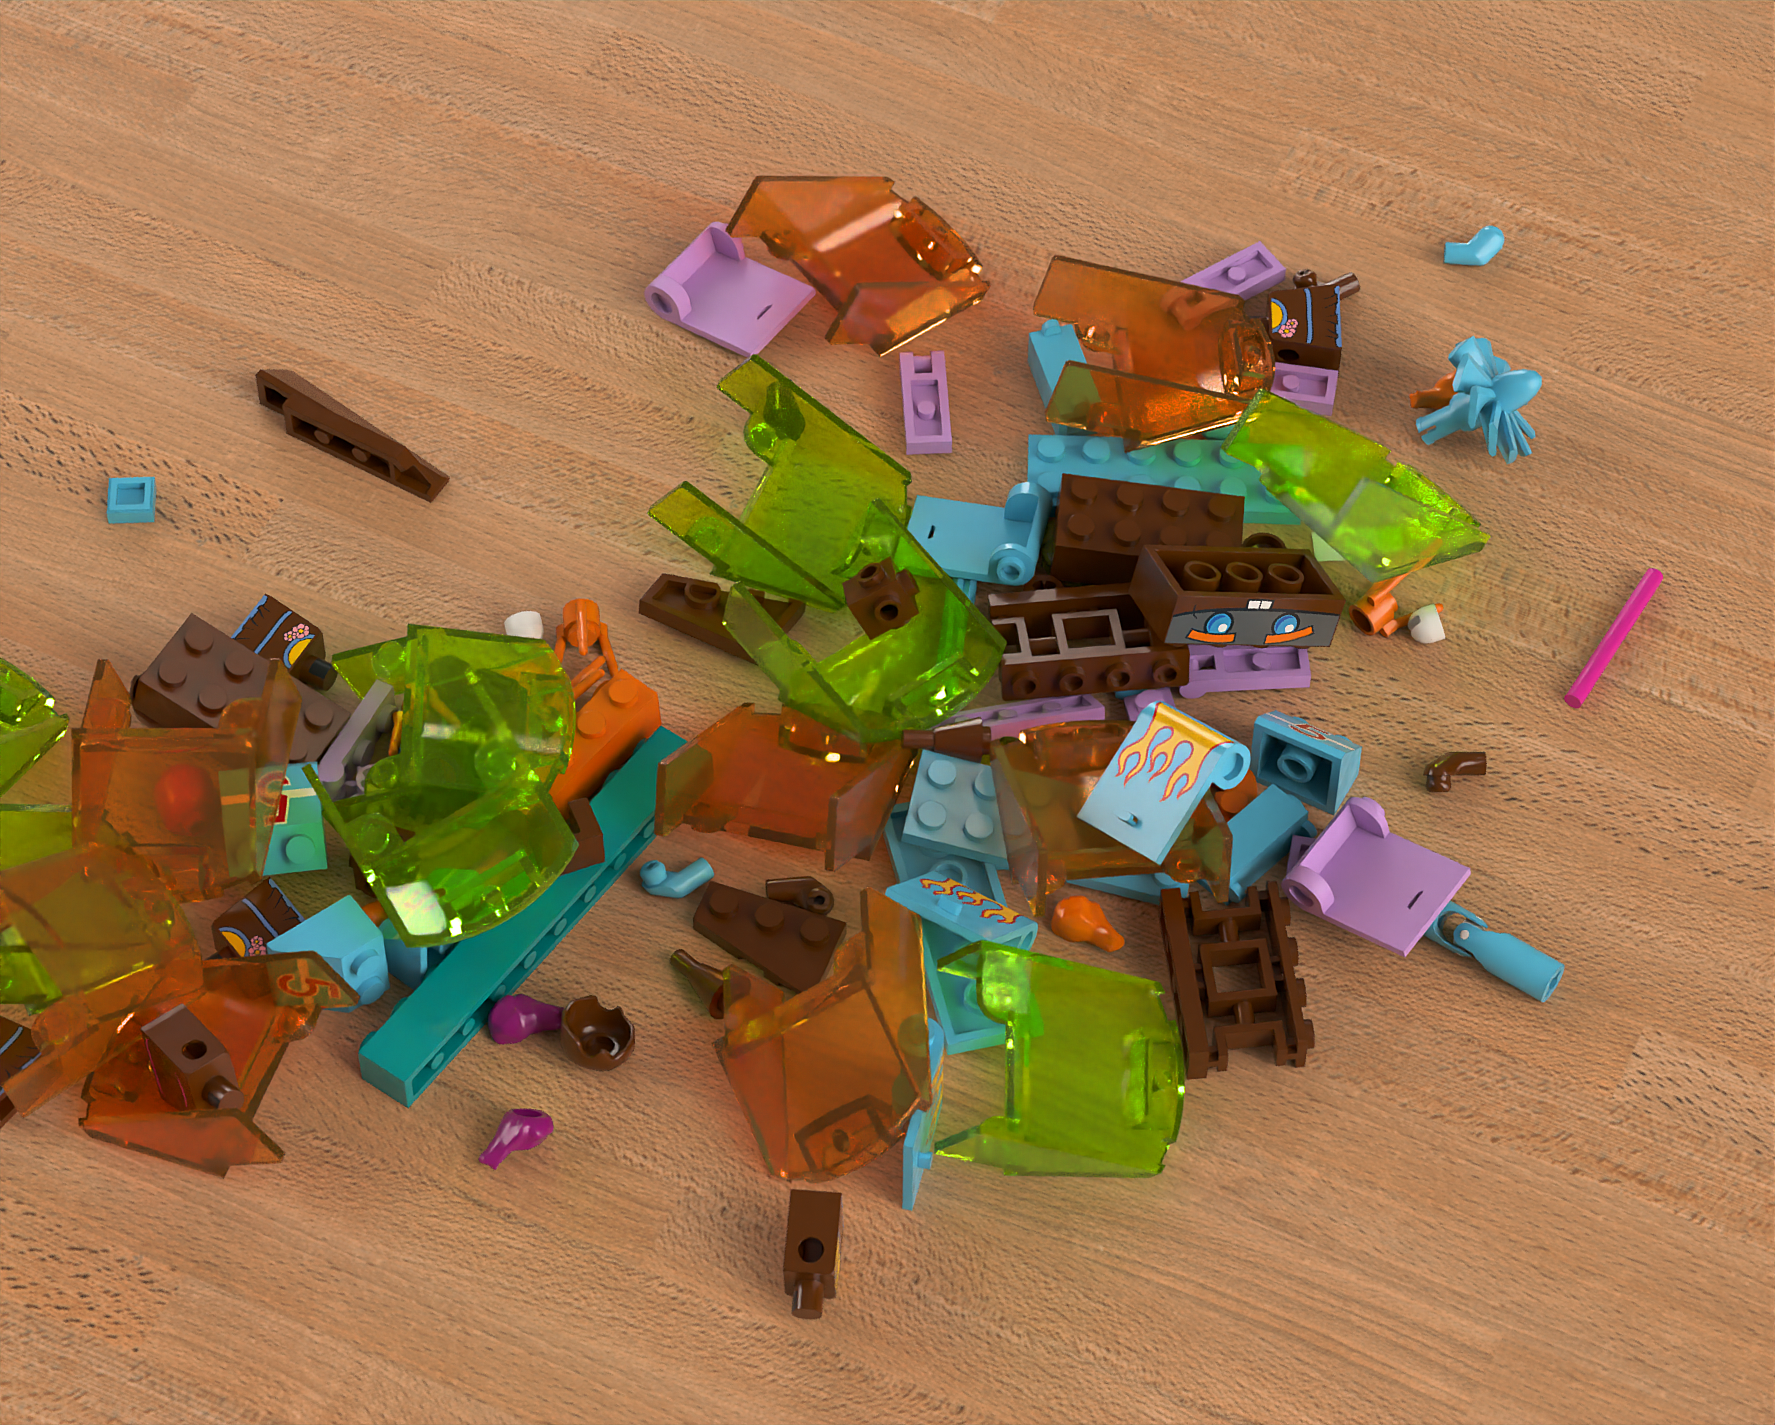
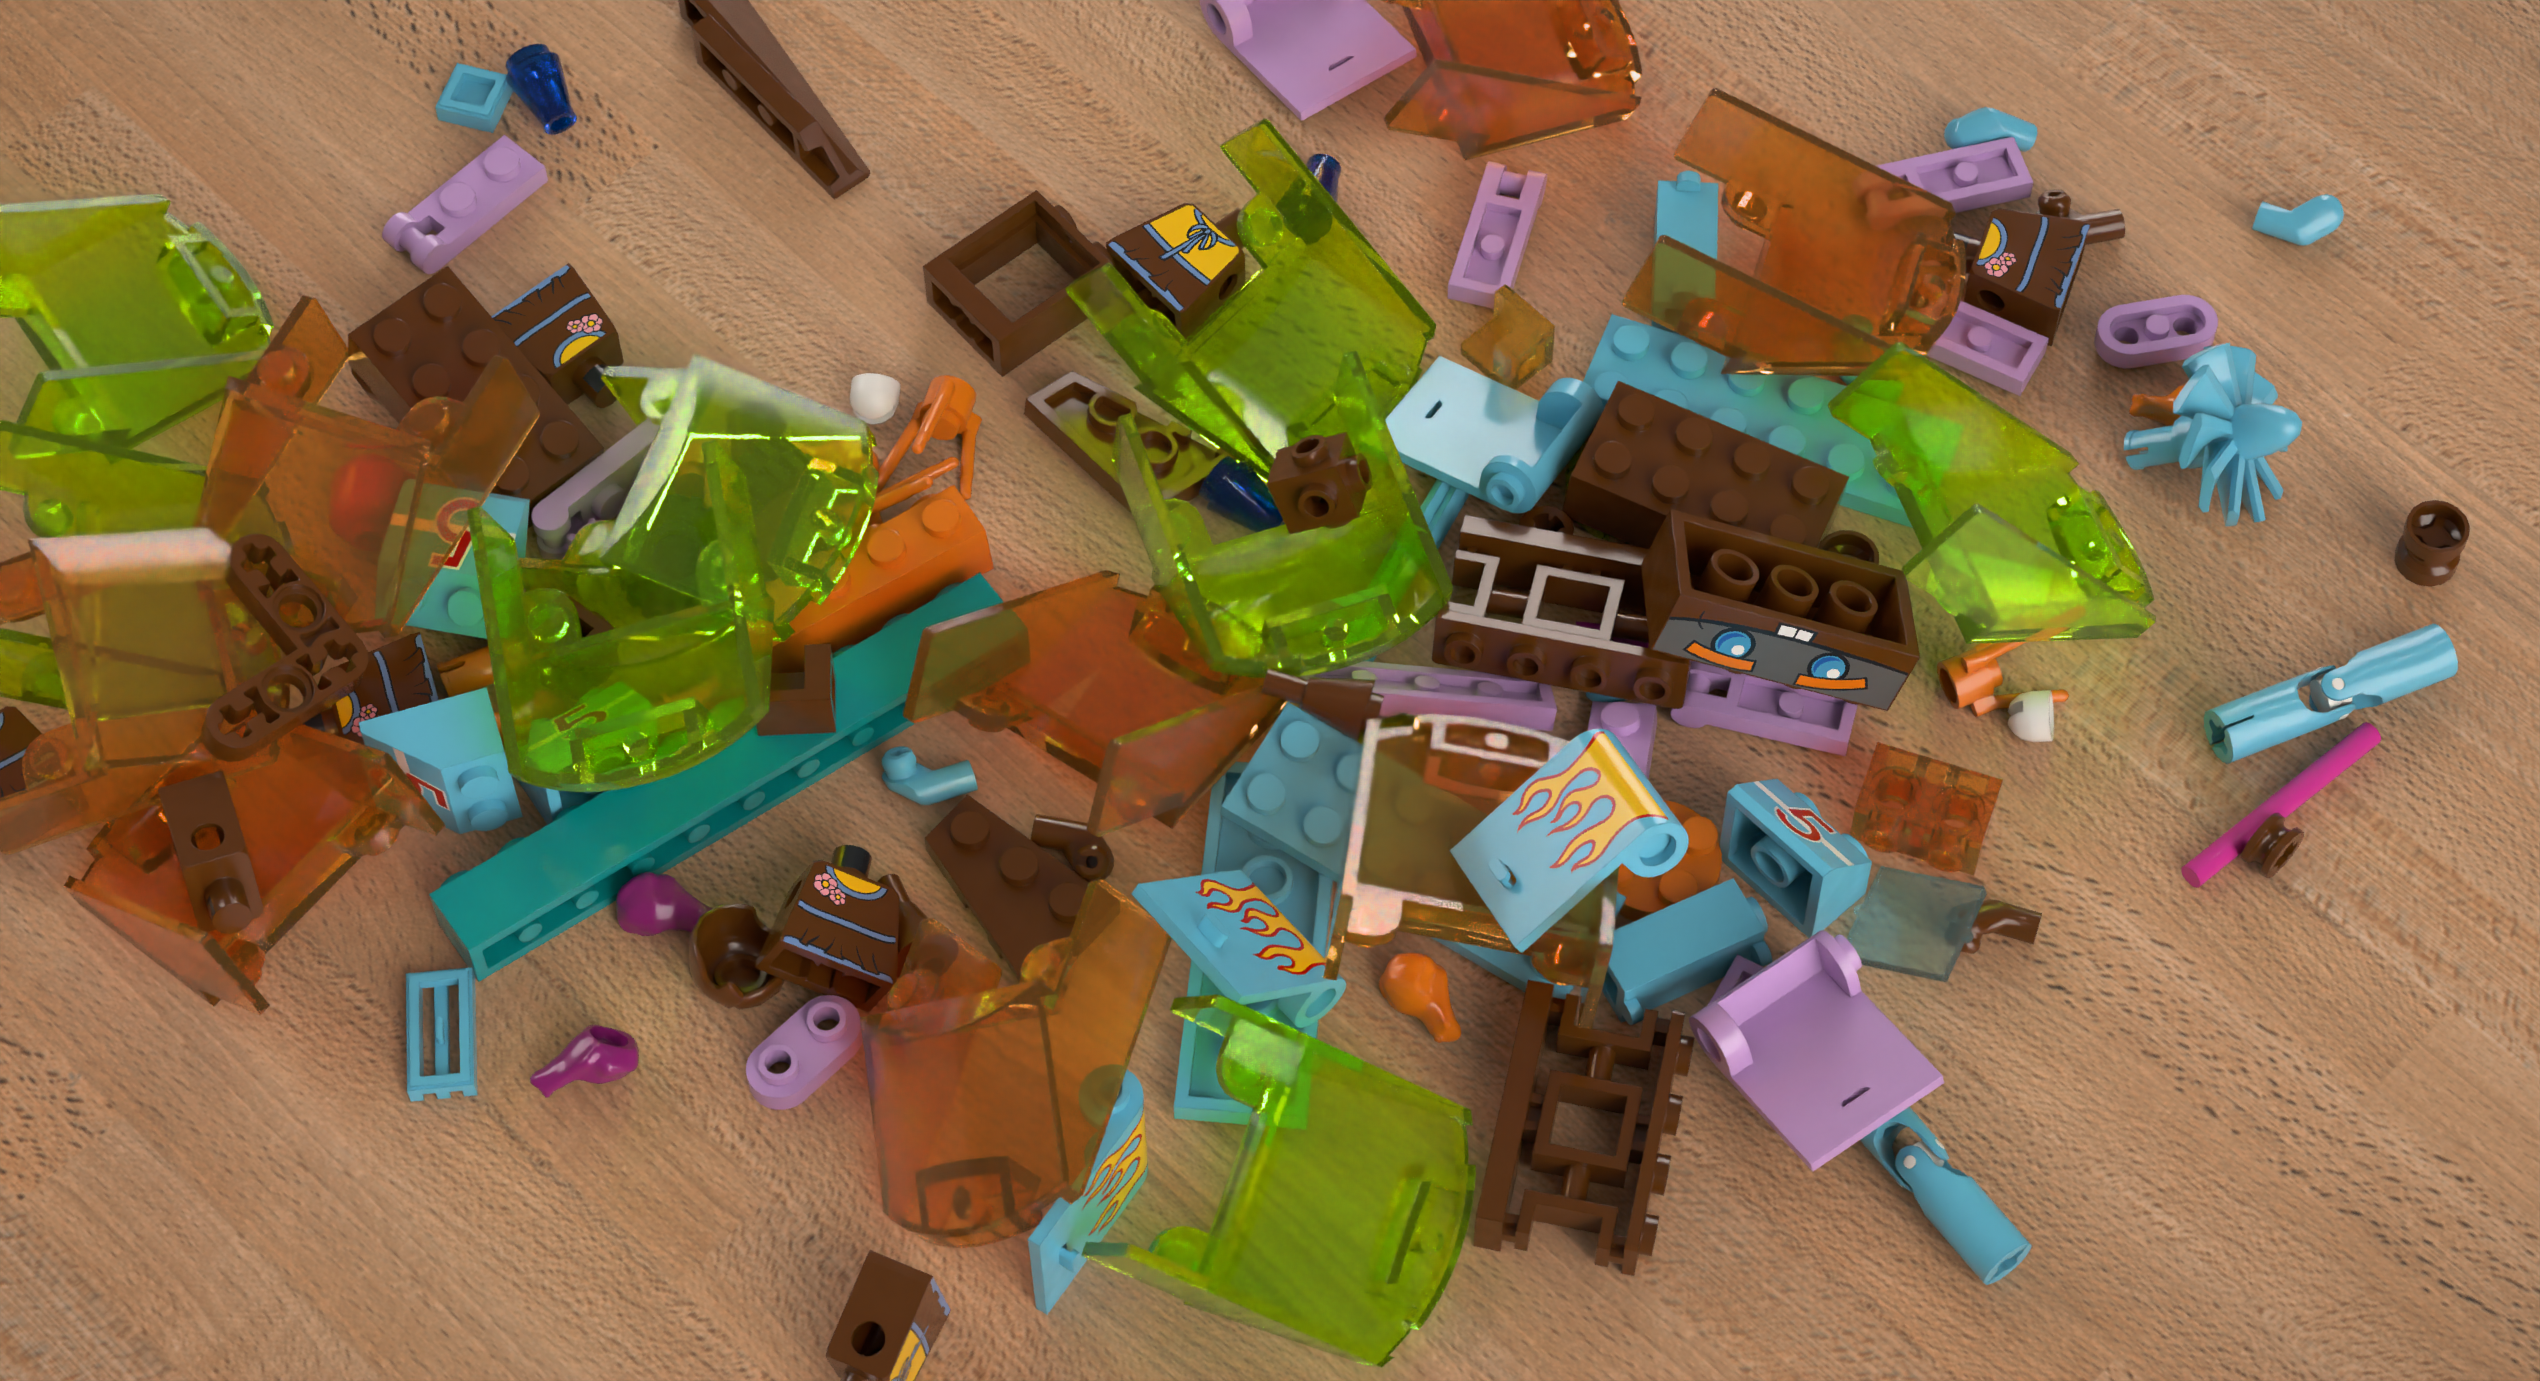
camera: 20 degrees right, 5 degrees up
(160, 576) = (466, 205): none -> lavender plate
(180, 476) = (541, 85): none -> clear blue cone
(203, 905) = (304, 650): none -> reddish brown beam
(320, 891) = (467, 672): none -> orange pin
(412, 1181) = (443, 1081): none -> medium azure tile
(578, 555) = (954, 273): none -> reddish brown window
(662, 996) = (837, 931): none -> reddish brown torso
(671, 1083) = (807, 1049): none -> lavender plate
(716, 468) = (1182, 263): none -> torso
(821, 627) = (1240, 496): none -> cone
(966, 471) = (1513, 343): none -> clear yellow panel
(1238, 238) = (1989, 125): none -> medium azure arm
(1380, 704) = (1930, 795): none -> clear orange brick
(1402, 350) = (2152, 331): none -> lavender plate
(1405, 779) = (1915, 923): none -> clear light blue piece
(1620, 664) = (2272, 845): none -> reddish brown bush
(1640, 540) = (2366, 681): none -> medium azure piece
(1648, 438) = (2432, 543): none -> reddish brown wheel

